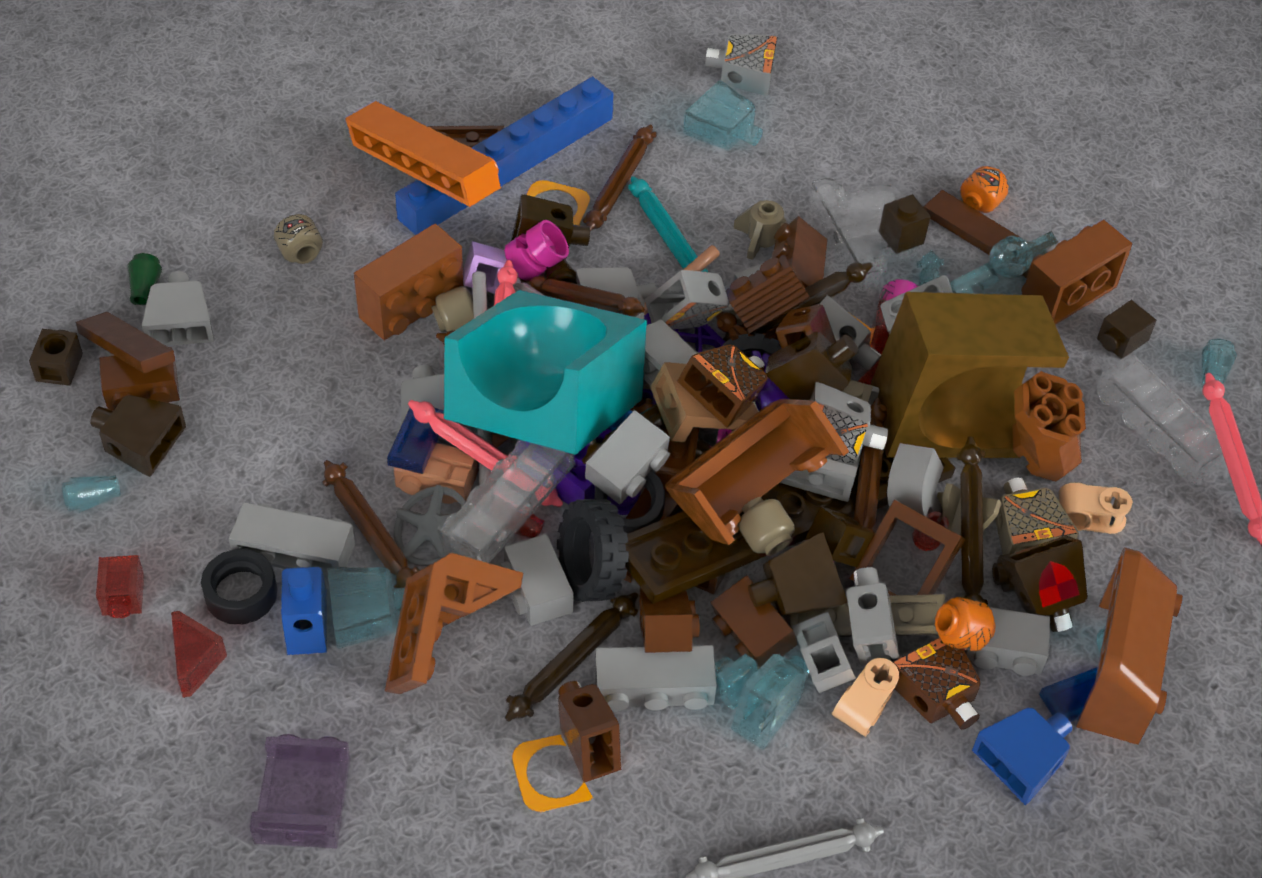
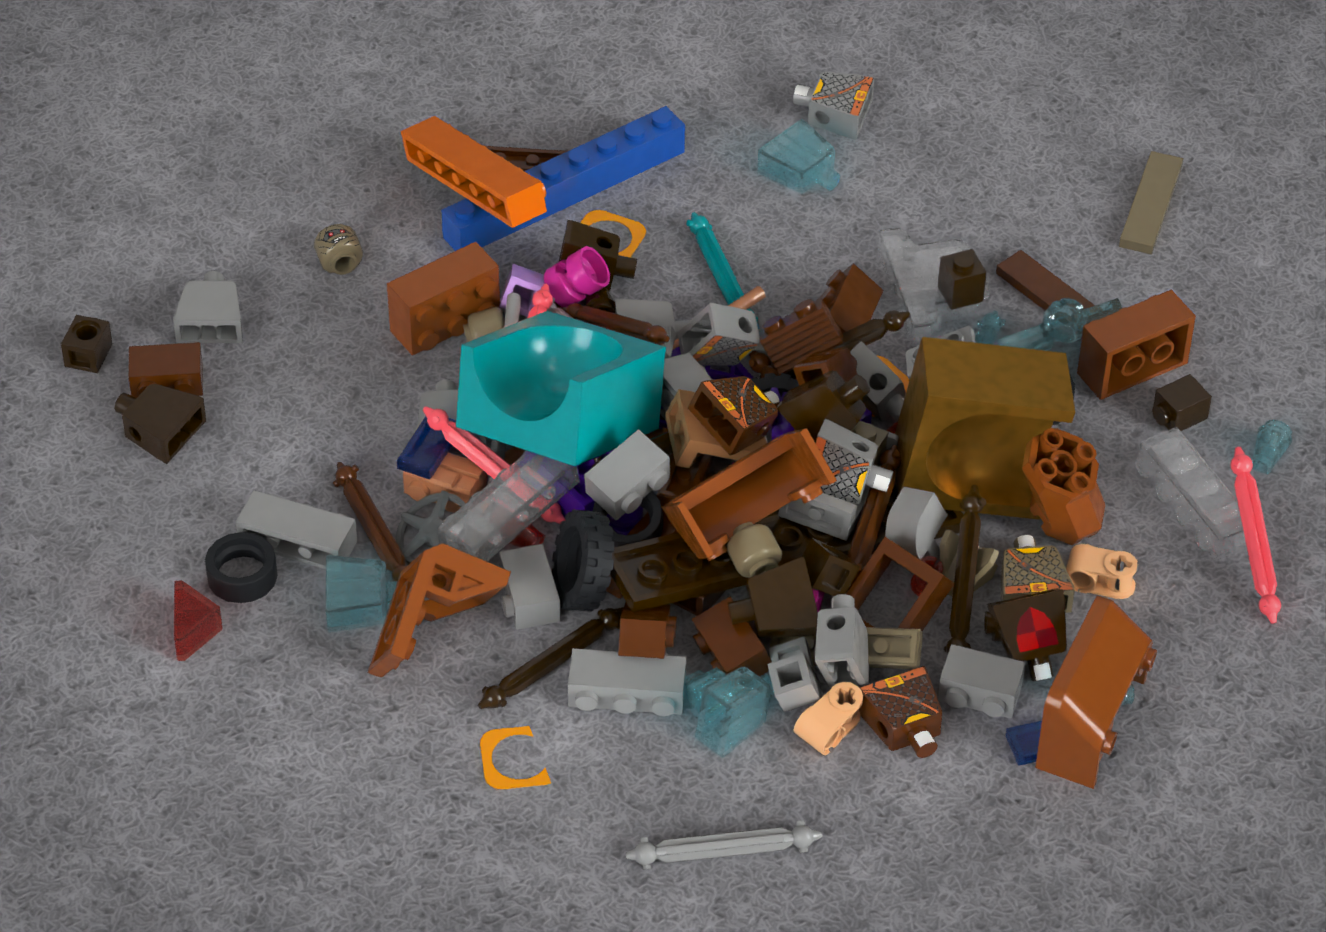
camera: 10 degrees right, 5 degrees down
(88, 492) = (105, 471): clear light blue cone -> none
(120, 586) = (128, 556): clear red brick -> none
(126, 342) = (155, 333): reddish brown tile -> none
(143, 273) = (179, 270): dark green cone -> none
(302, 792) = (278, 748): clear purple panel -> none
(304, 598) = (300, 576): blue torso -> none
(587, 715) = (549, 703): reddish brown torso -> none
(619, 177) = (680, 212): reddish brown wheel -> none
(760, 224) = (816, 268): dark tan brick -> none
(965, 624) = (933, 656): orange head -> none
(984, 189) = (1066, 252): orange head -> none
(1024, 750) = (975, 779): blue torso -> none
(1047, 136) = (1151, 202): none -> dark tan tile

